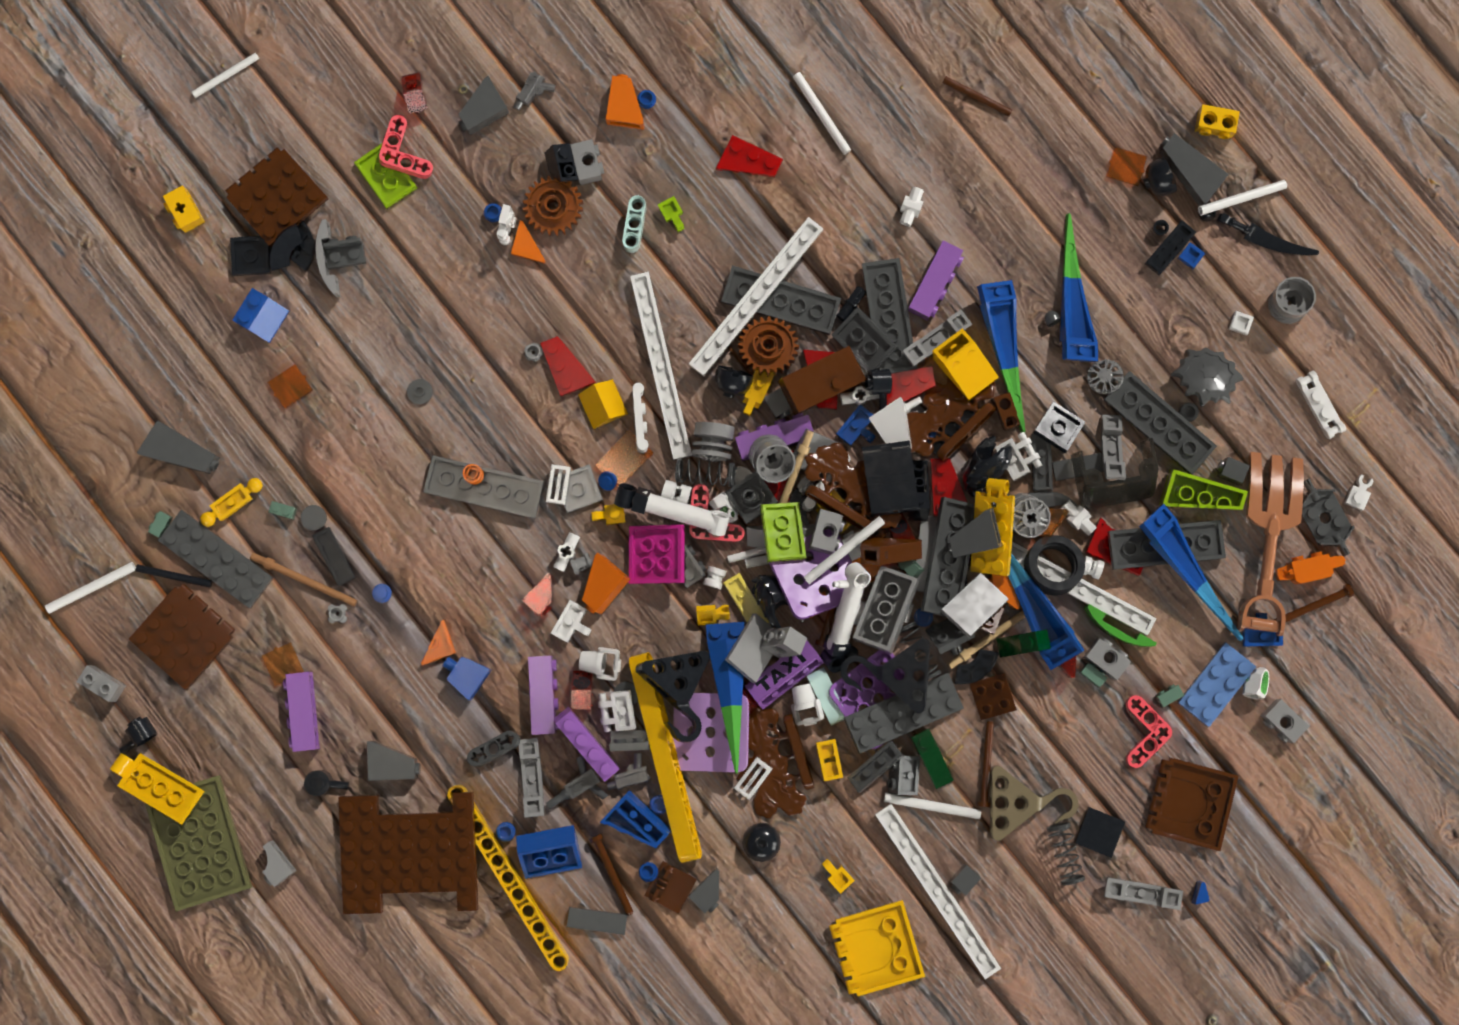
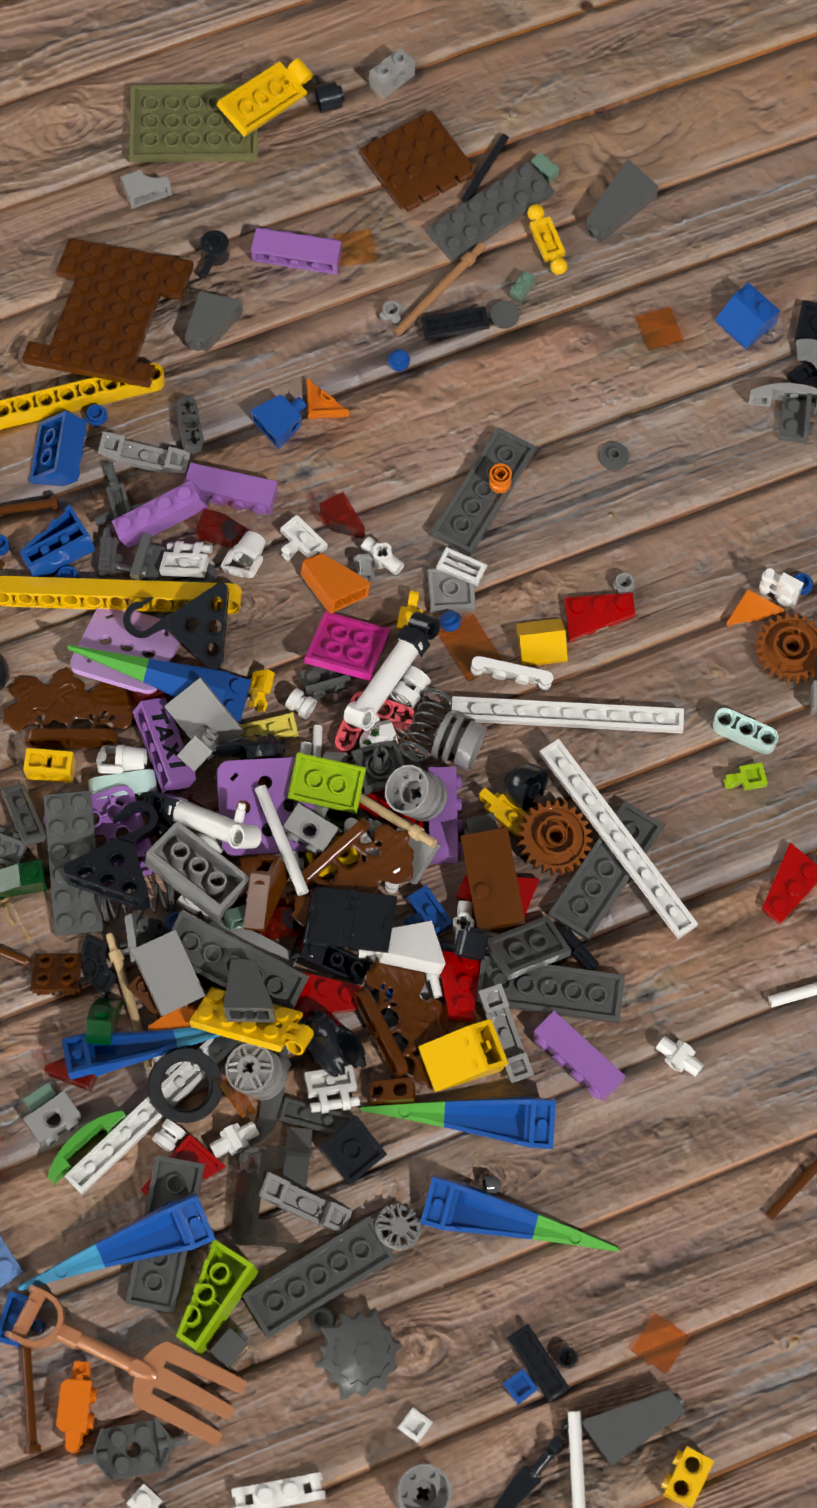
camera: 105 degrees right, 15 degrees down
(90, 587) = (498, 88): white piece -> none
(763, 765) = (68, 694): white tile -> none
(1159, 178) = (631, 1374): black cylinder -> none

